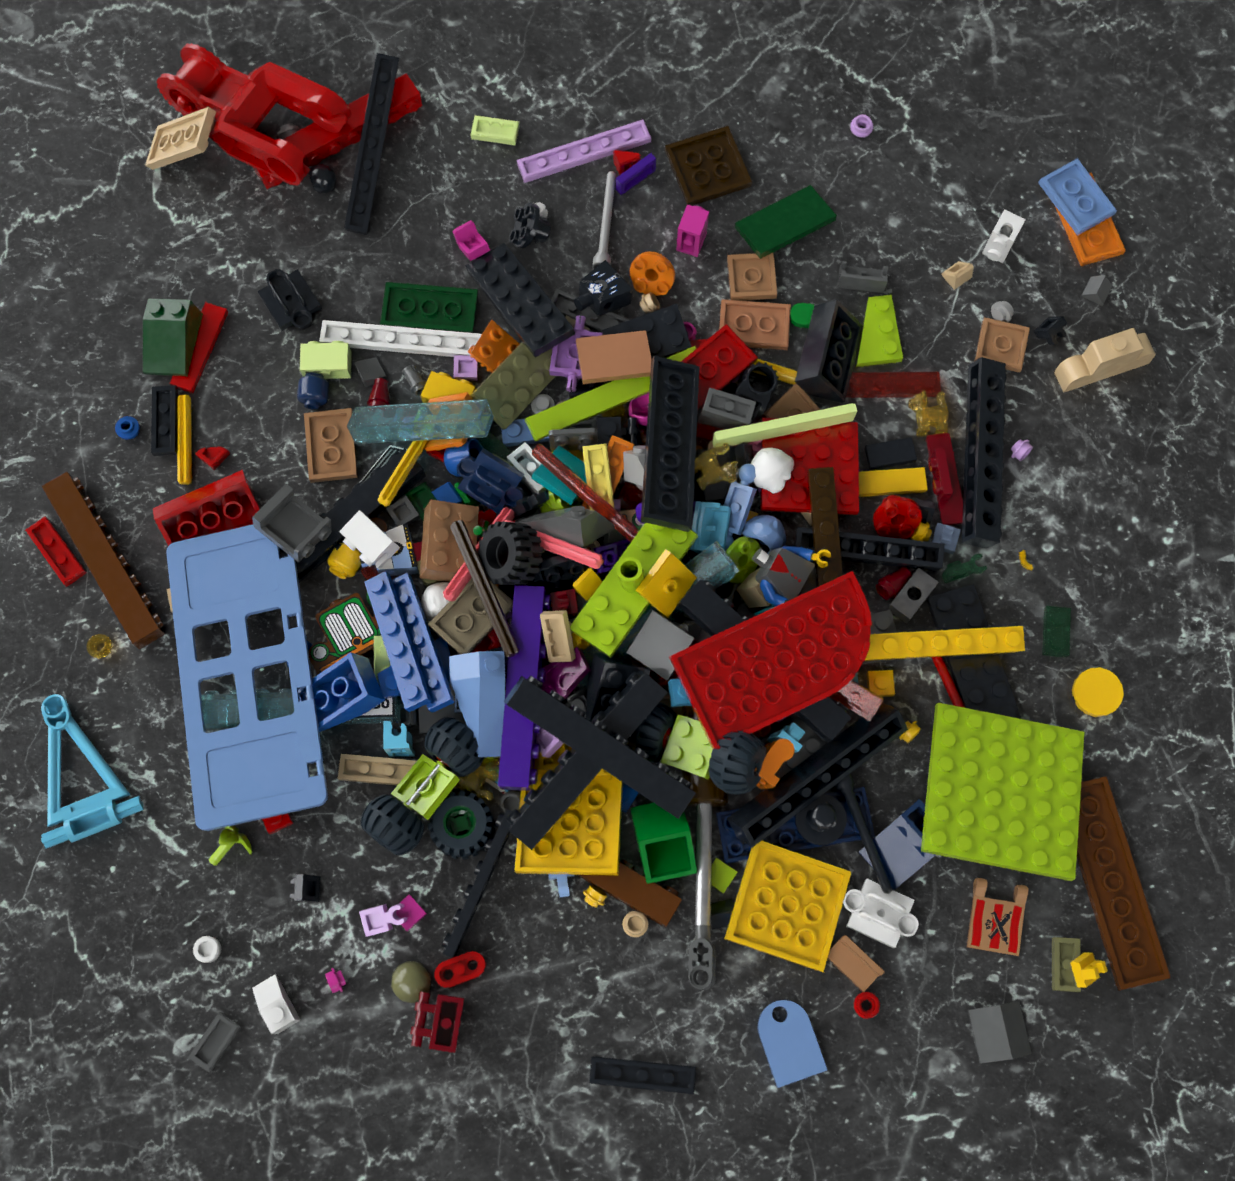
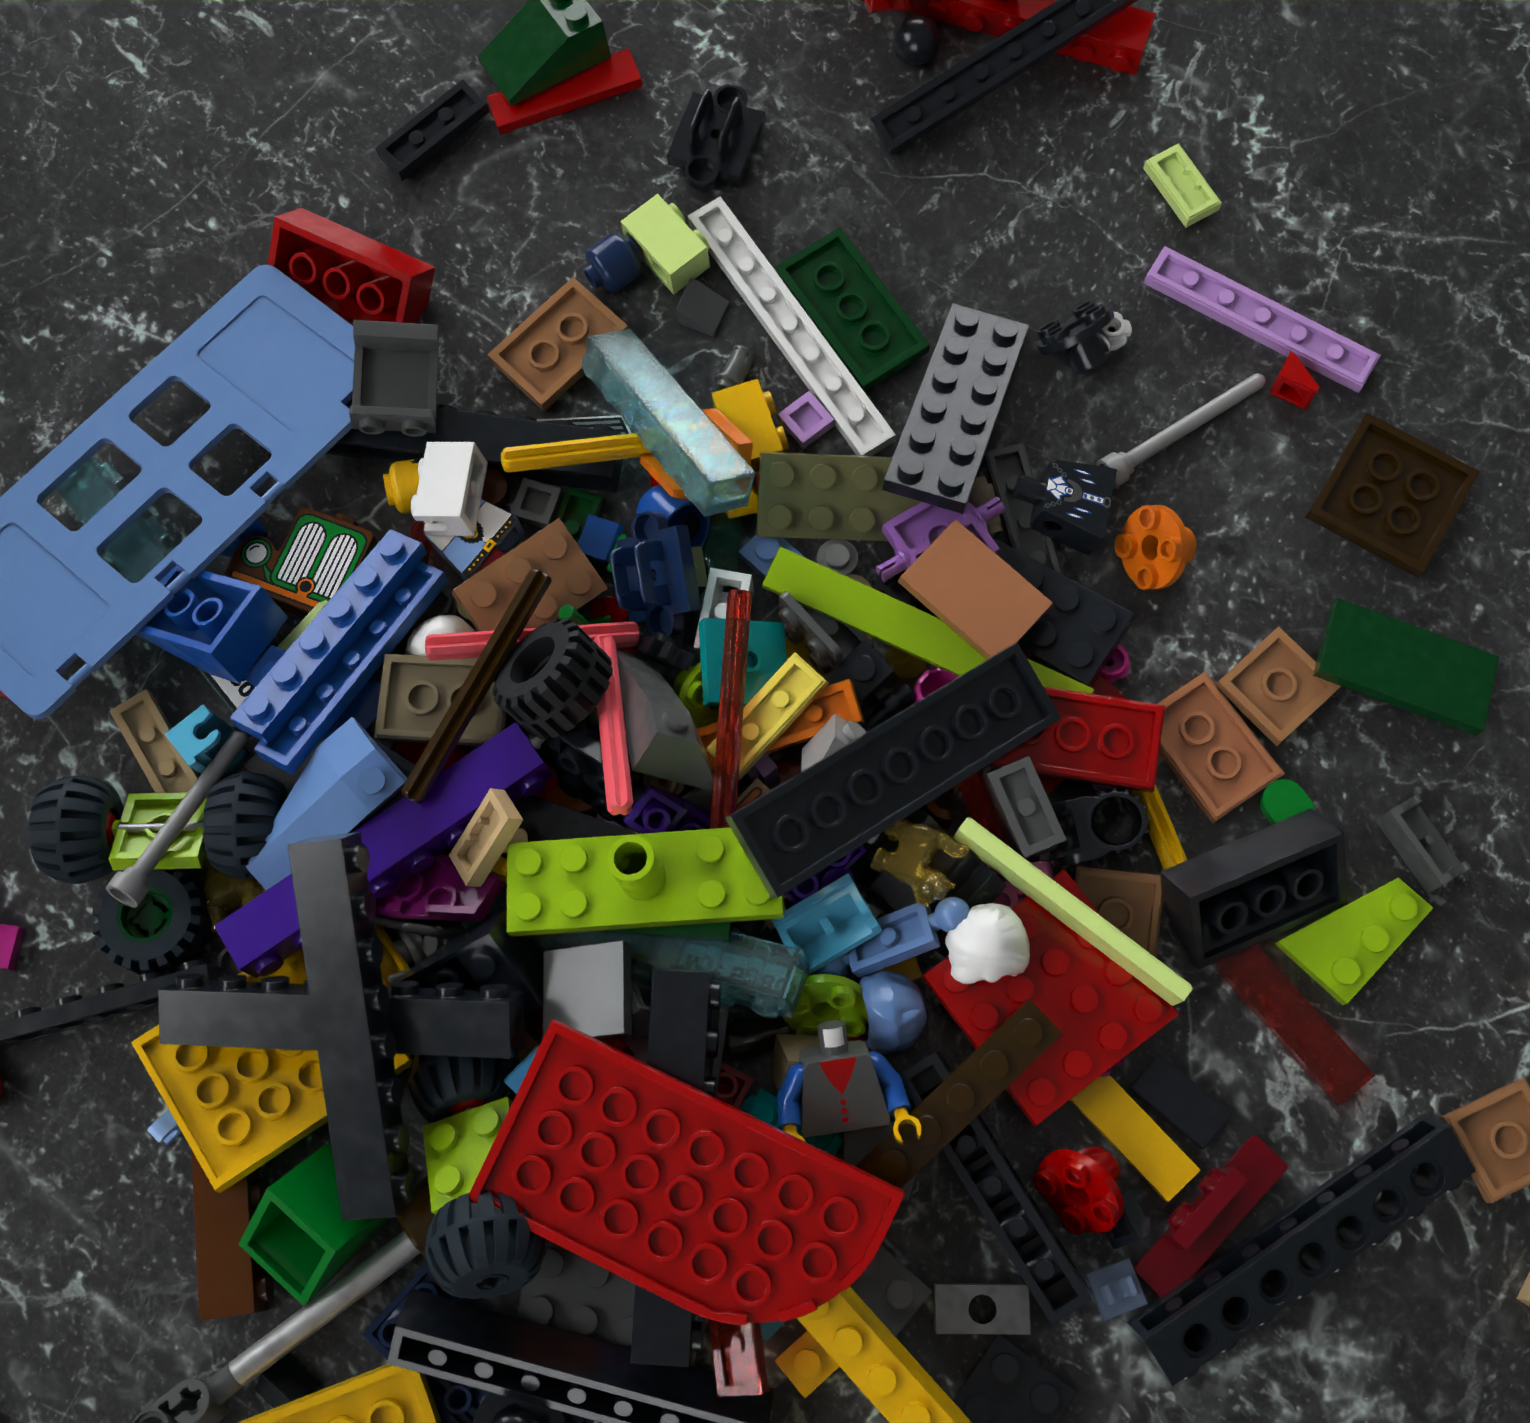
camera: 60 degrees right, 0 degrees up
(56, 551) = (169, 152): red tile -> none
(93, 643) = (79, 286): clear yellow plate -> none
(103, 560) = (193, 211): reddish brown brick -> none
(130, 433) = (391, 107): blue plate -> none
(184, 440) = (427, 172): yellow axle -> none
(213, 456) = (433, 222): red tile -> none
(379, 393) = (676, 346): dark red cone -> none
(447, 809) = (130, 885): none -> light grey piece
(470, 241) = (992, 281): dark pink bracket -> none
(493, 347) = (859, 426): orange hinge -> none
(564, 601) = (551, 810): dark red tile -> none
(587, 584) = (594, 819): yellow slope -> none
(594, 896) = (179, 1181): yellow plate -> none
(635, 924) = (181, 1270): tan plate -> none
(636, 174) = (1287, 409): dark purple tile -> none
(649, 303) = (1110, 579): tan plate -> none
(666, 583) = (670, 928): yellow plate -> none
(692, 230) = (1269, 548): dark pink brick -> none
(721, 875) = (341, 1341): lime tile -> none
(780, 749) = (558, 1292): orange hips -> none
(891, 585) = (976, 1263): dark red cone -> none
(922, 532) = (1092, 1247): yellow plate -> none
(929, 416) = (1293, 1121): clear yellow animal -> none
(958, 571) = (1077, 1349): clear green plate -> none
(1021, 449) = (1359, 1302): lavender plate -> none

